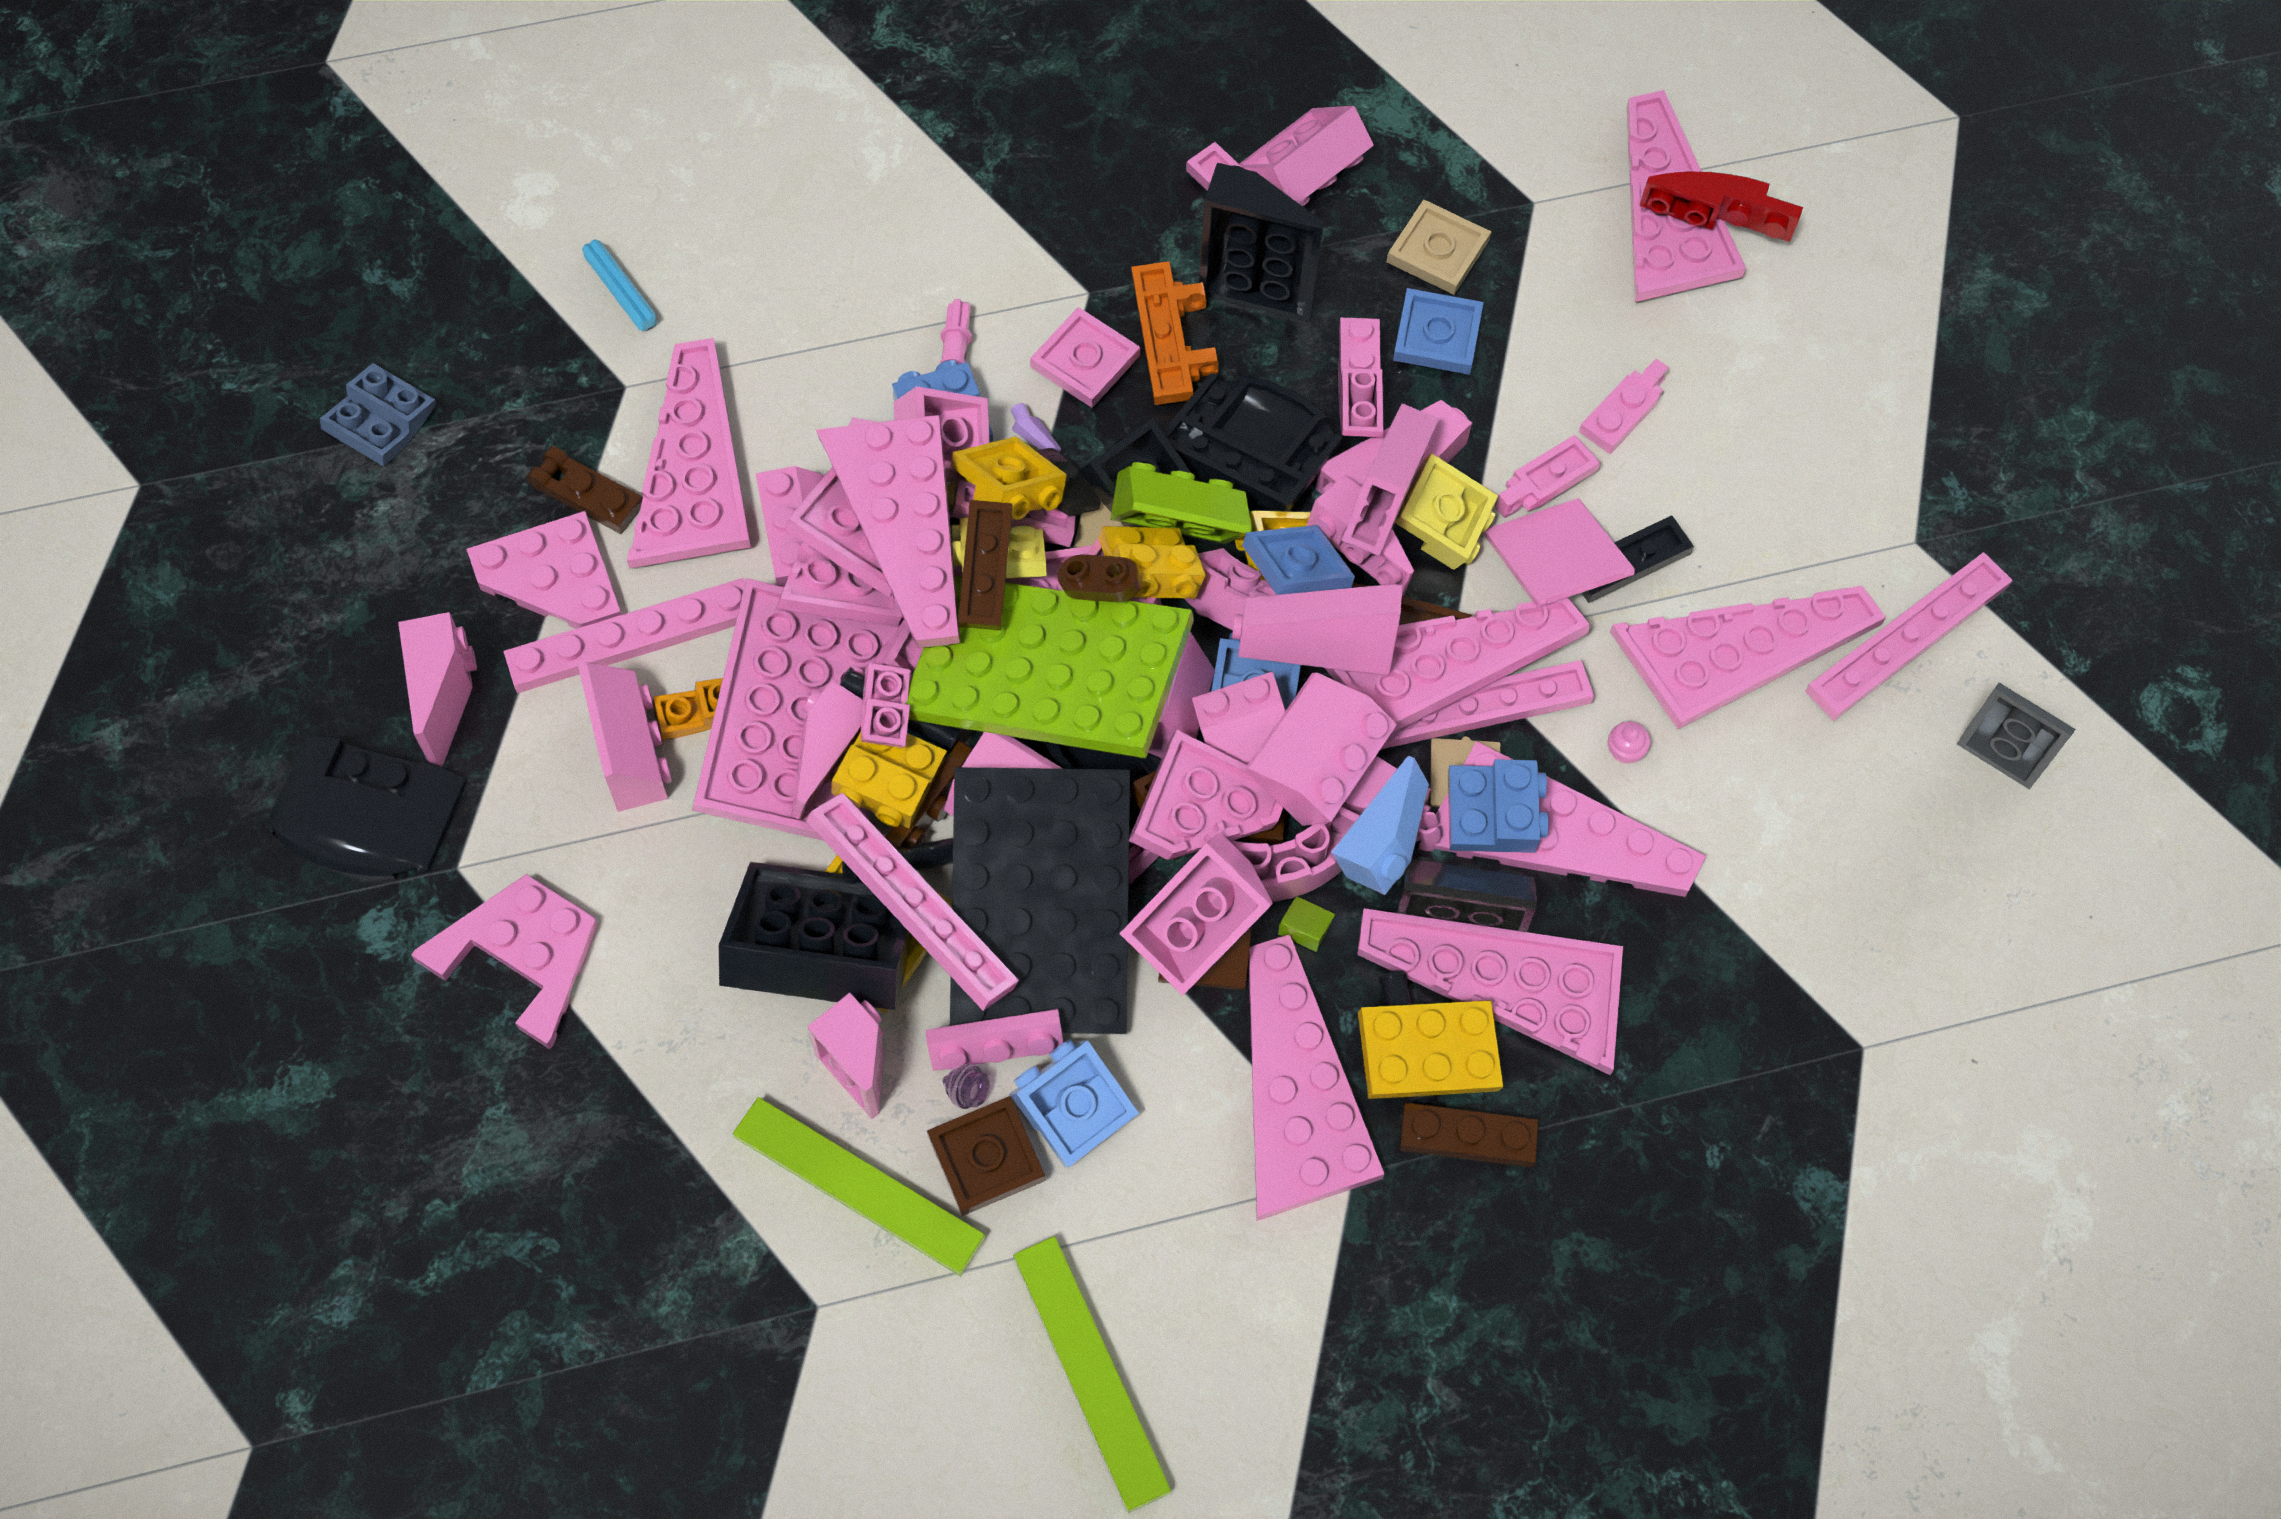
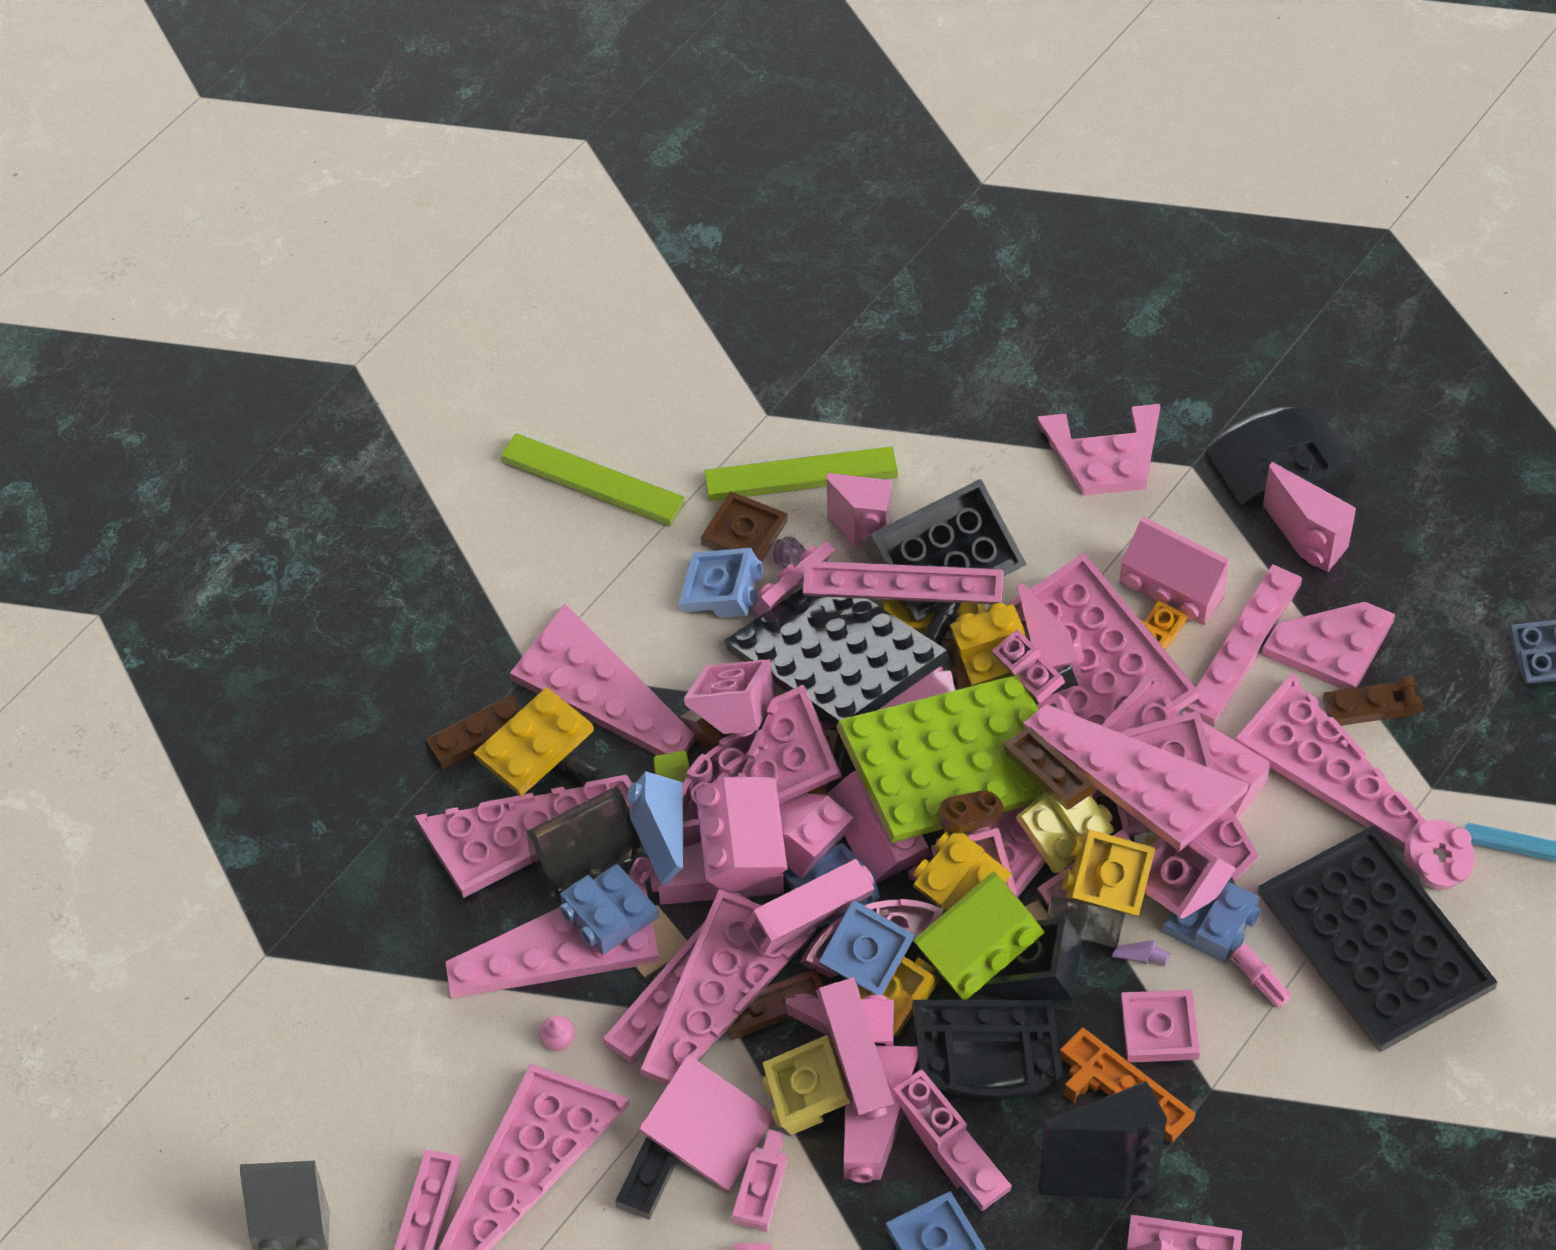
camera: 145 degrees right, 10 degrees down
(696, 312) = (1455, 844): none -> bright pink plate
(826, 296) = (1377, 938): none -> black plate

